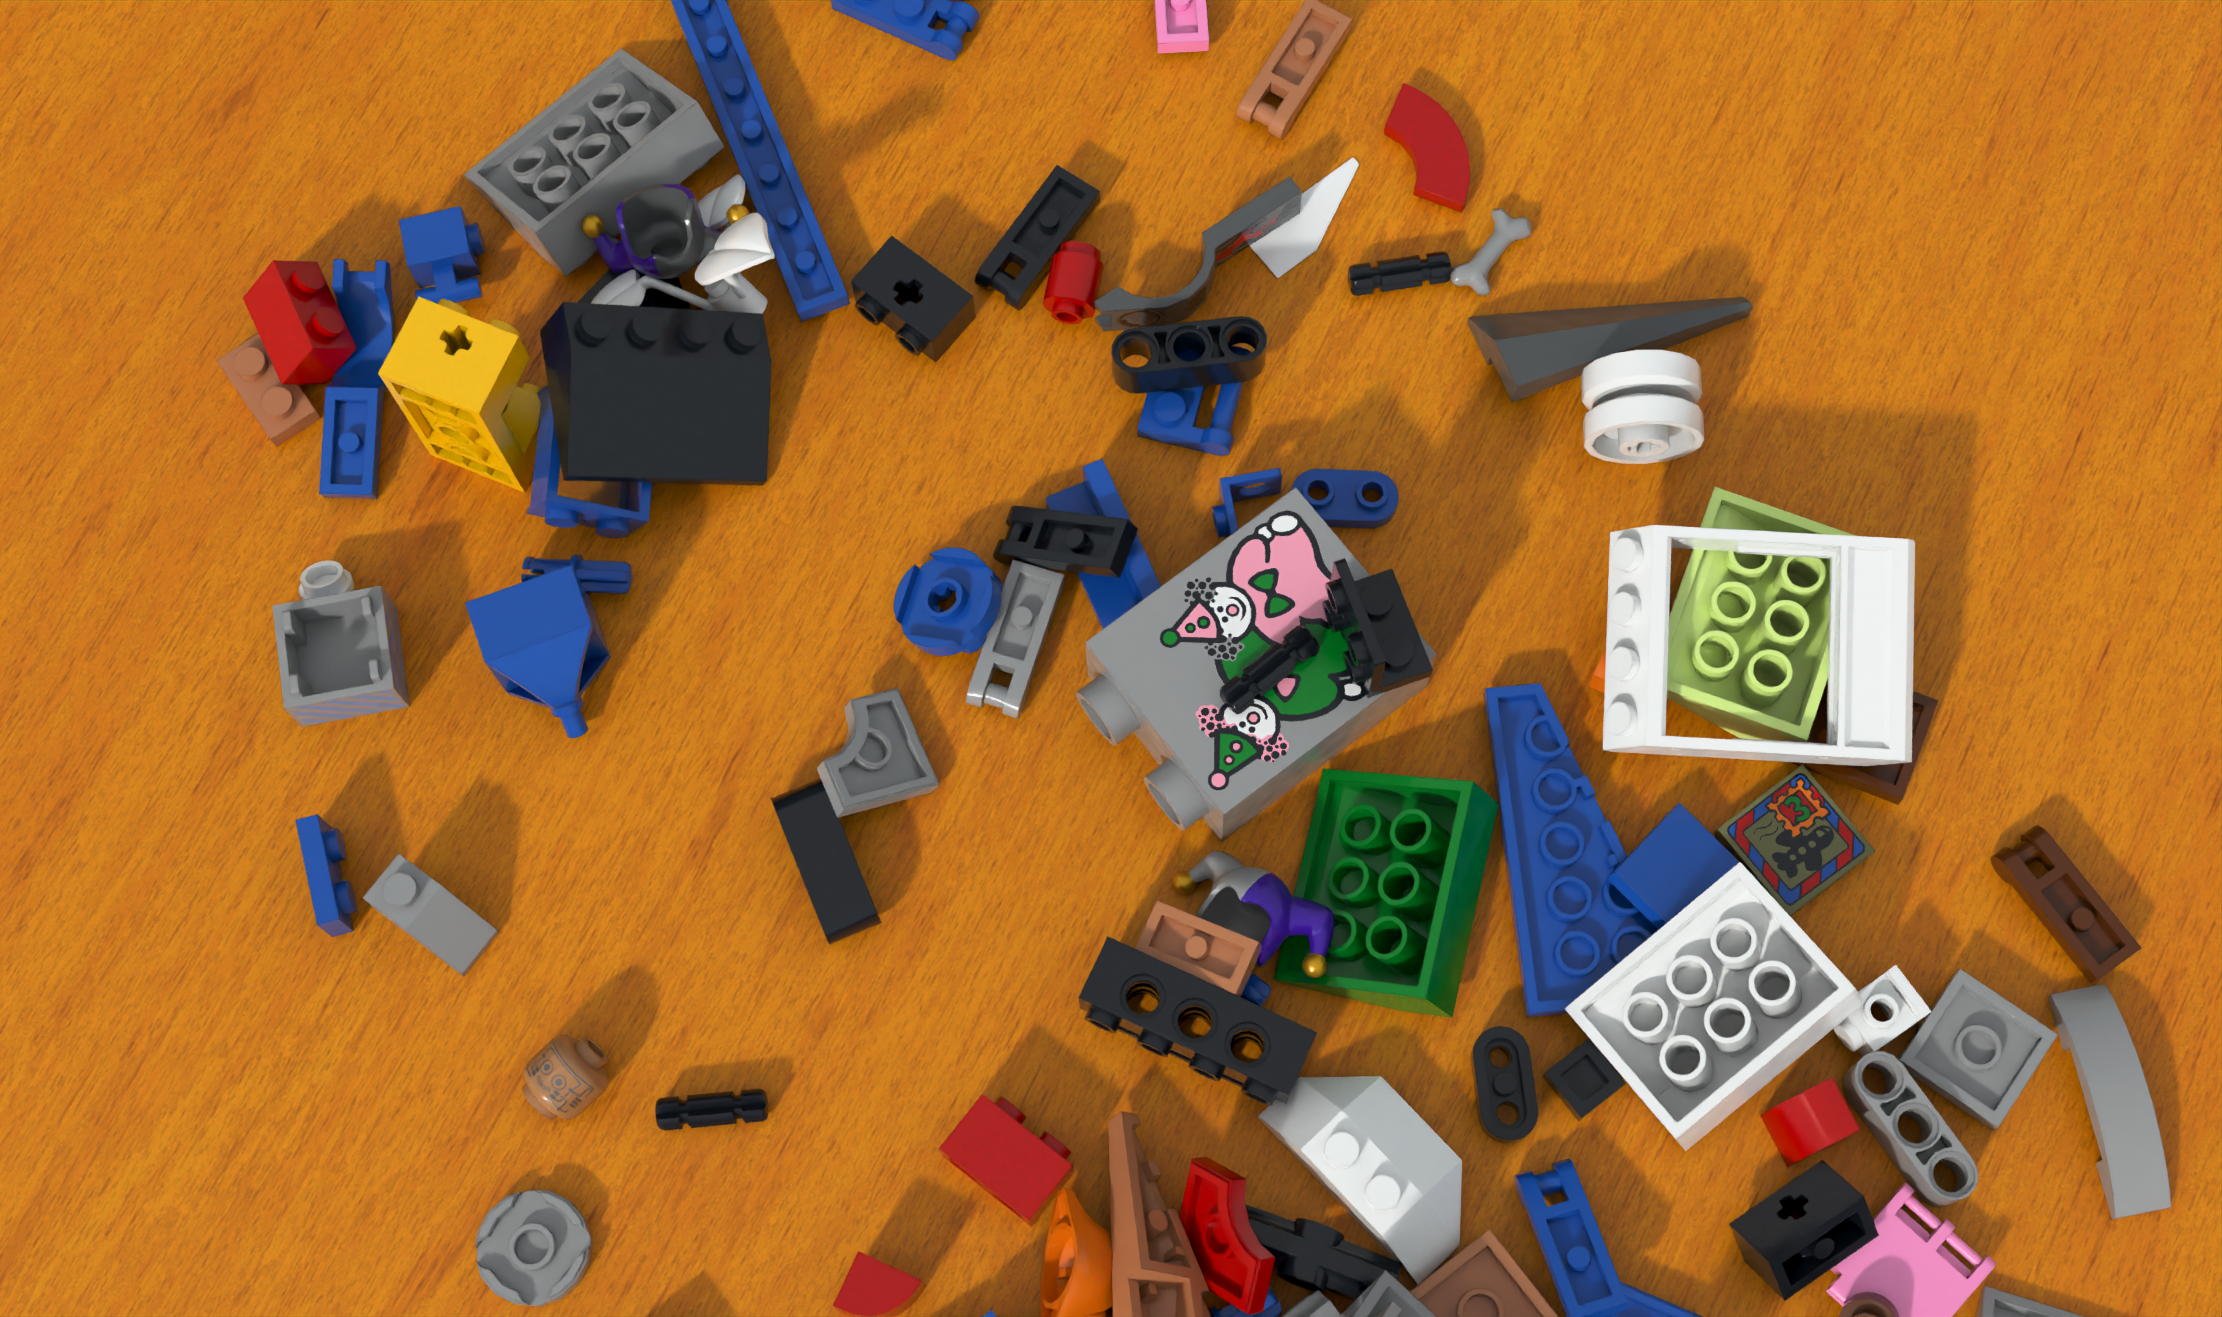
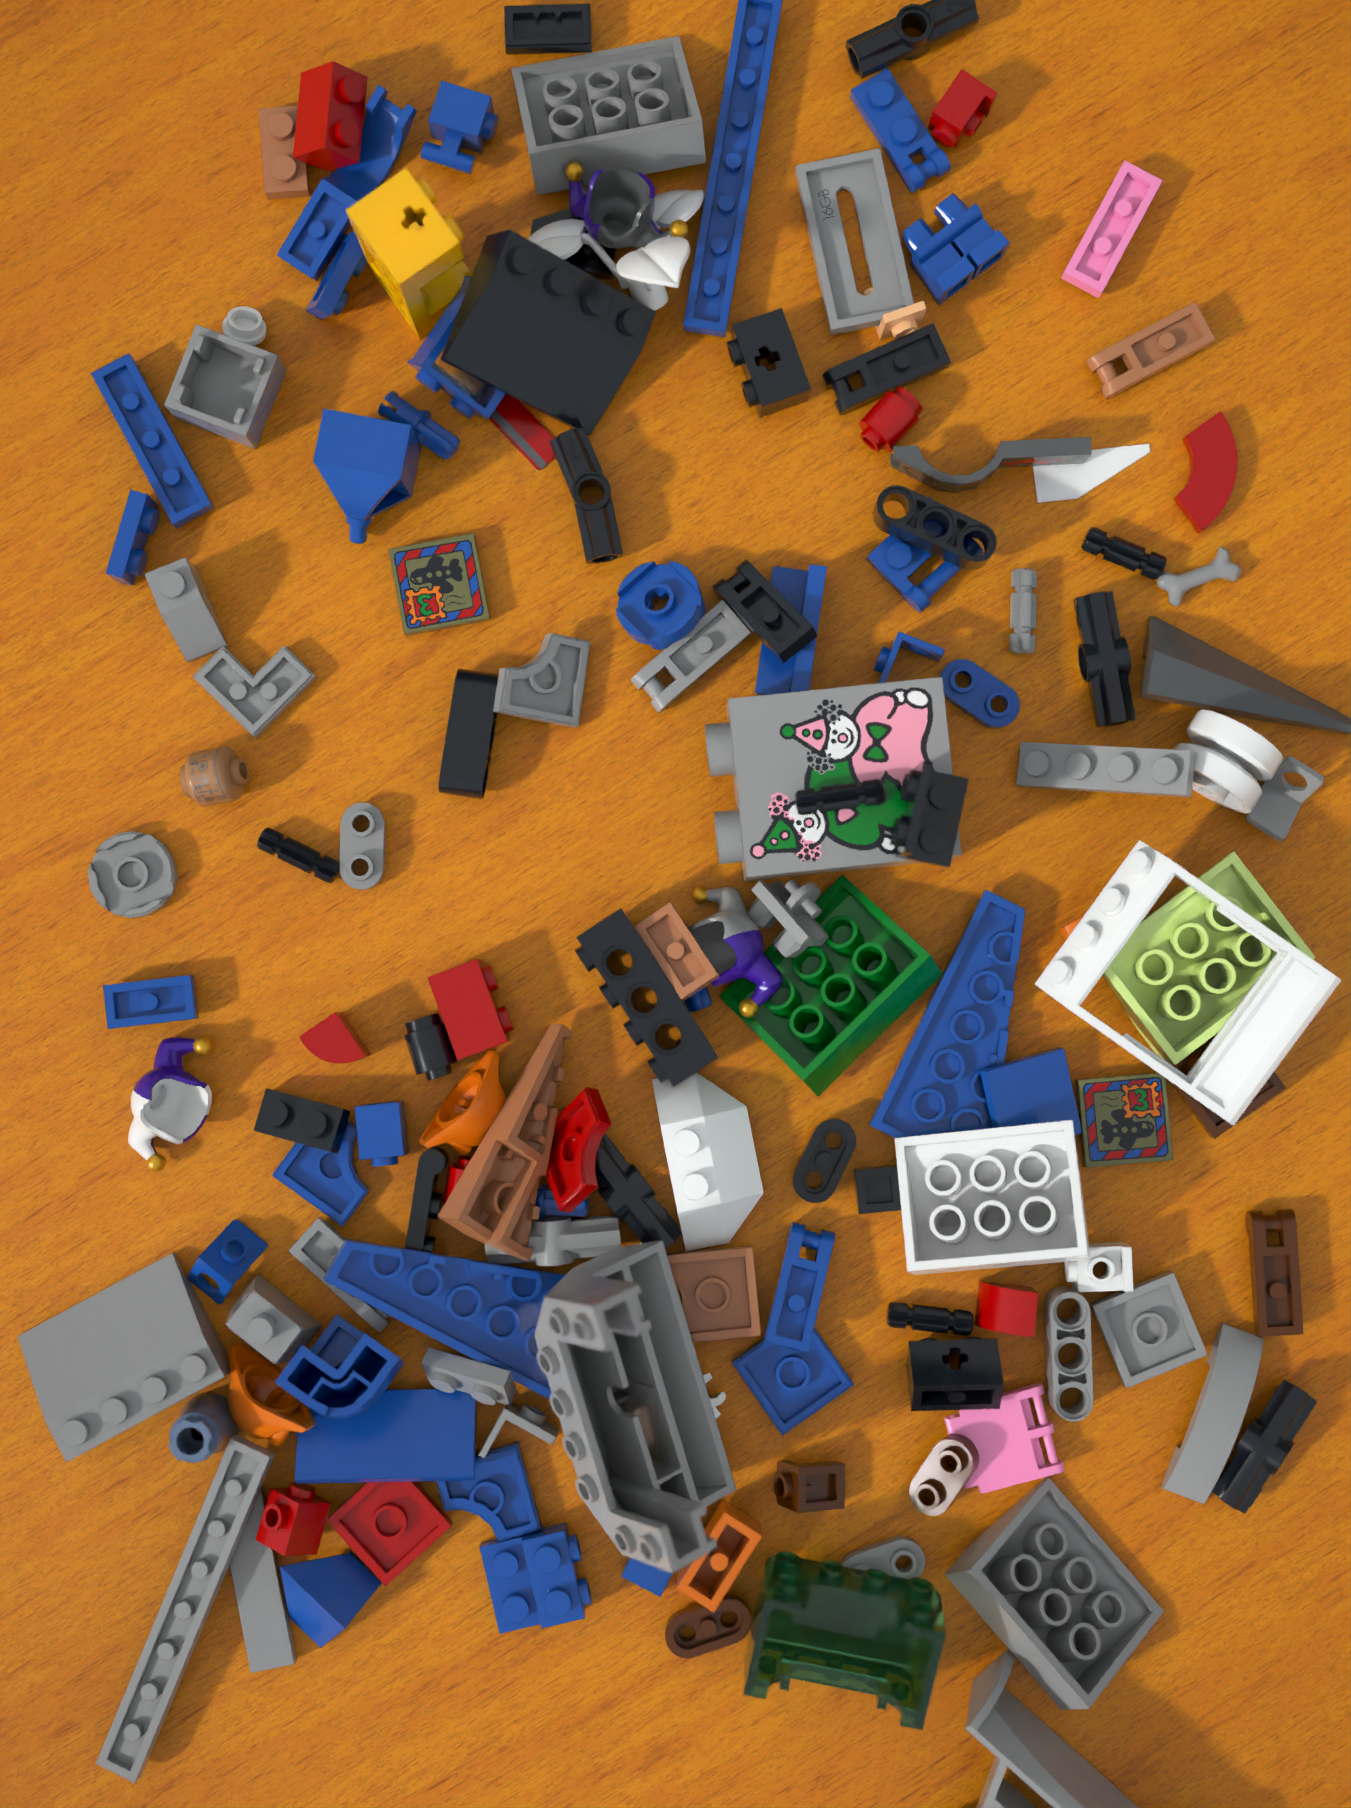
camera: 25 degrees right, 15 degrees up
(290, 760) = (152, 440): none -> blue plate
(400, 456) = (331, 292): none -> blue plate
(480, 115) = (548, 29): none -> black plate
(563, 969) = (259, 697): none -> light grey tile
(695, 519) = (523, 431): none -> red sticker
(696, 727) = (439, 584): none -> tile
(776, 1055) = (362, 846): none -> light grey plate
(783, 518) = (580, 471): none -> black piece
(901, 74) = (866, 181): none -> light grey piece
(988, 1229) = (430, 1047): none -> black brick
(1017, 185) = (901, 321): none -> light nougat bracket
(1036, 88) = (957, 251): none -> blue hips
(1271, 837) = (795, 911): none -> light grey hips
(1334, 389) = (1023, 611): none -> light grey axle
(1450, 386) = (1104, 659): none -> black piece
(1526, 486) = (1106, 769): none -> light grey plate
(1728, 418) = (1281, 800): none -> light grey bracket
(1735, 1189) = (930, 1318): none -> black axle
(2189, 1096) = (1264, 1446): none -> black piece

